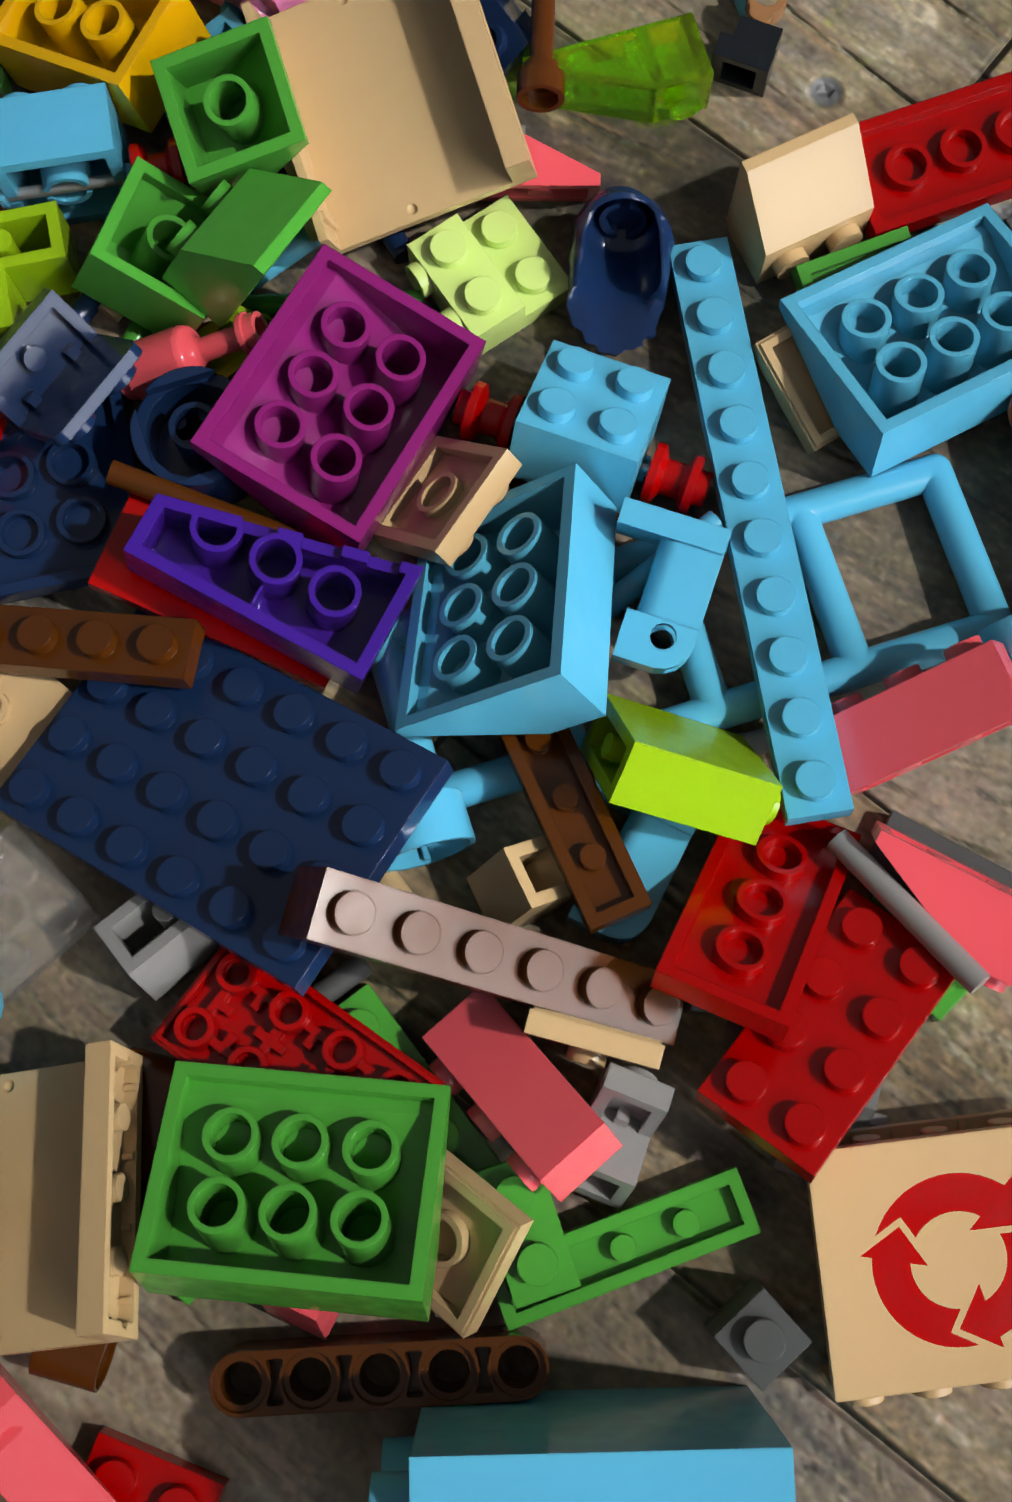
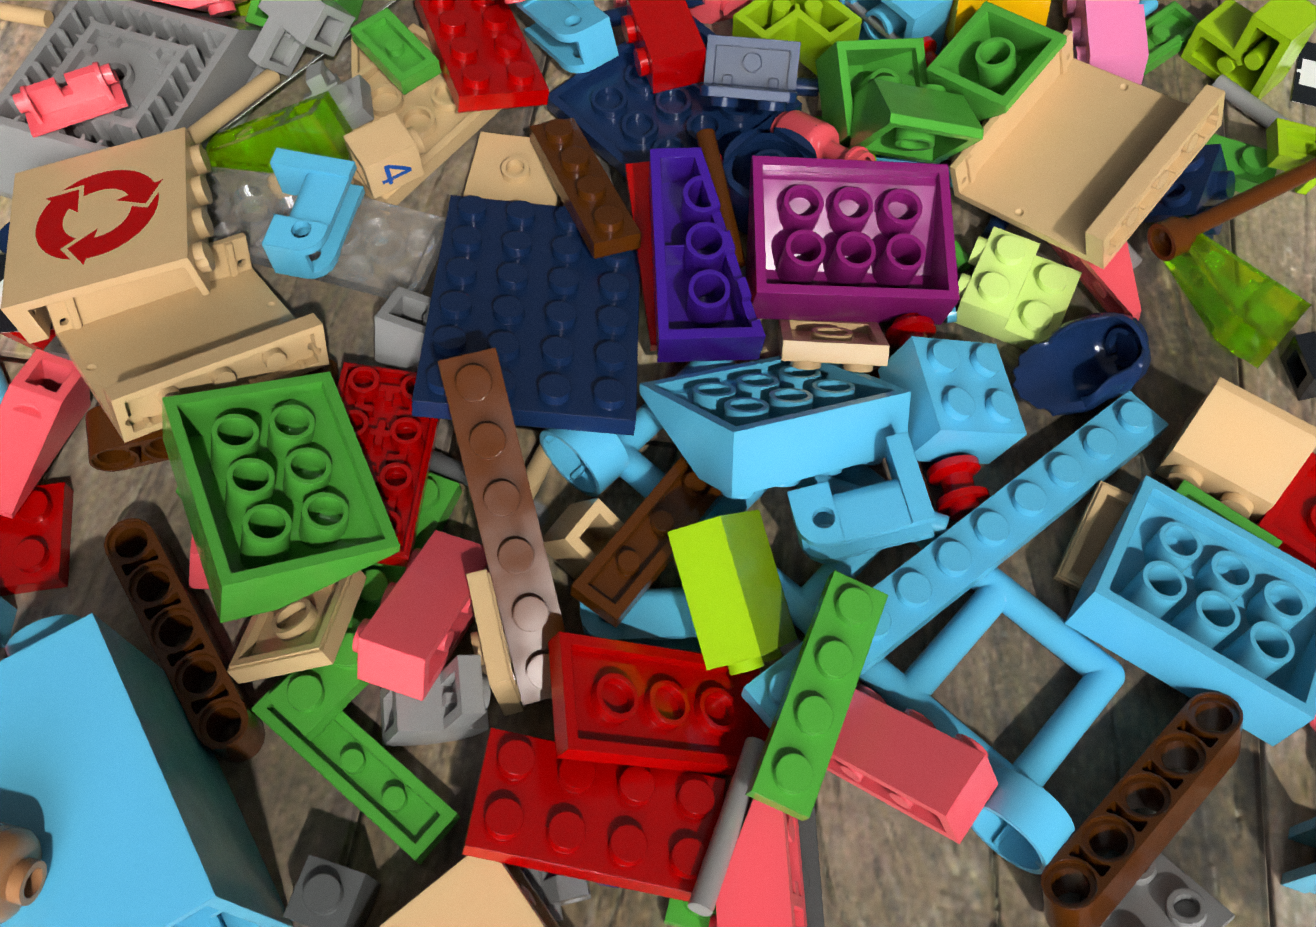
camera: 60 degrees right, 15 degrees down
(842, 753) = (817, 697): none -> bright green plate

